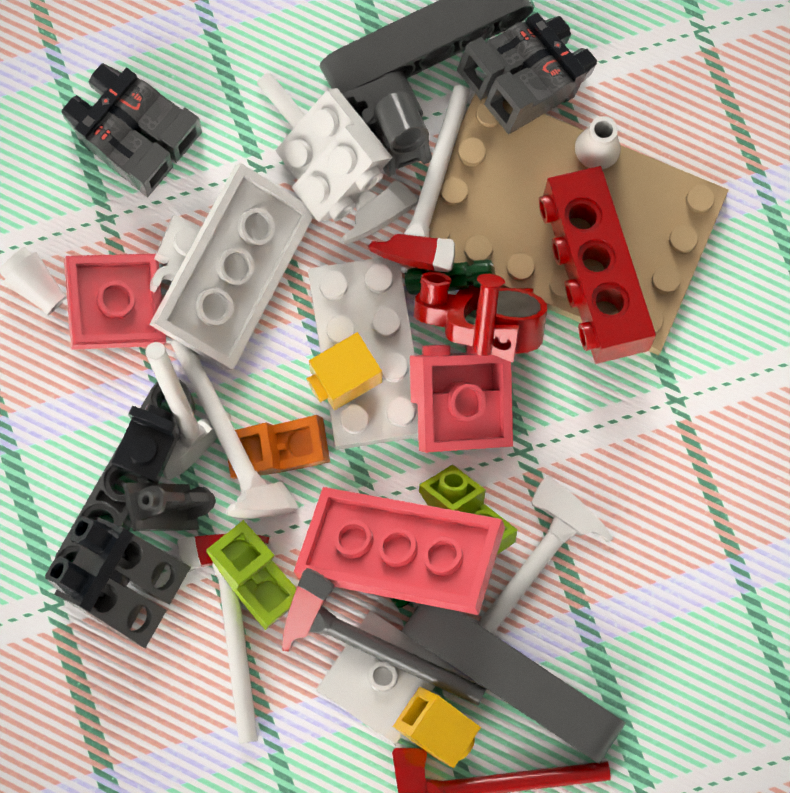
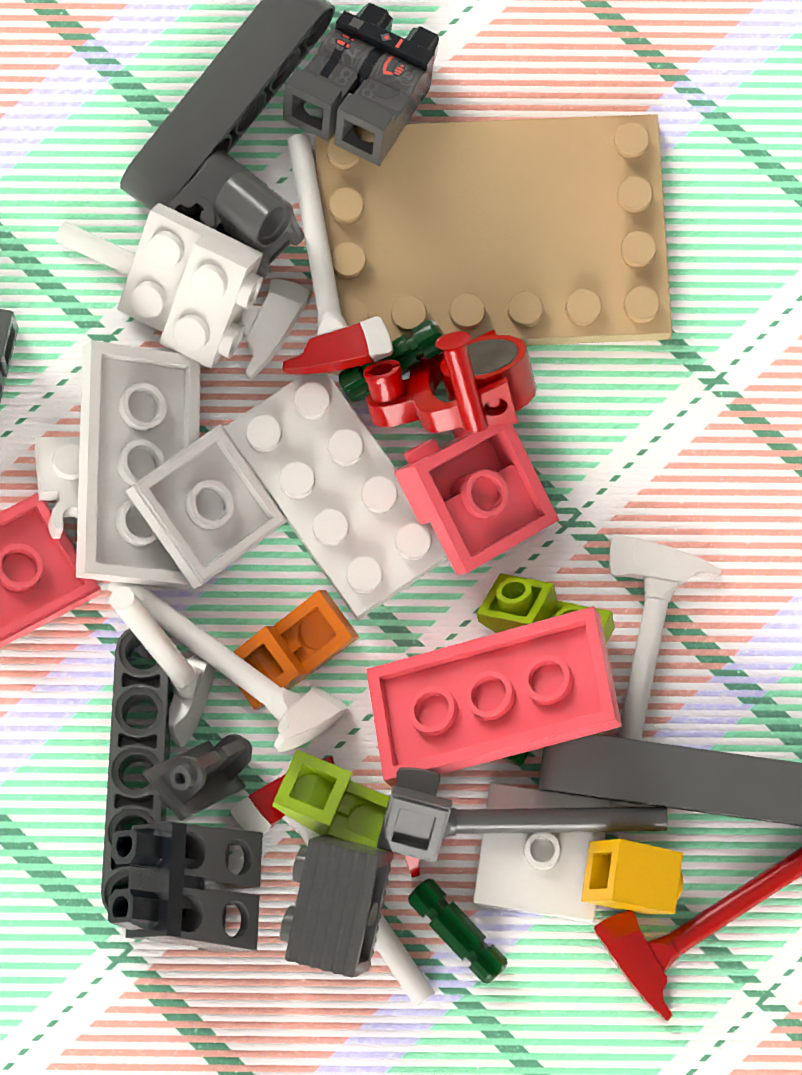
camera: 25 degrees left, 0 degrees up
(147, 443) = (144, 714): black bracket -> none
(216, 644) = (336, 905): none -> dark grey brick
(266, 317) = (206, 506): none -> white plate
(295, 704) = (457, 930): none -> dark green axle
(299, 612) = (414, 823): none -> tile
(343, 372) = (329, 525): yellow brick -> none
(587, 197) = (509, 196): red brick -> none
(598, 143) = (488, 130): white cone -> none

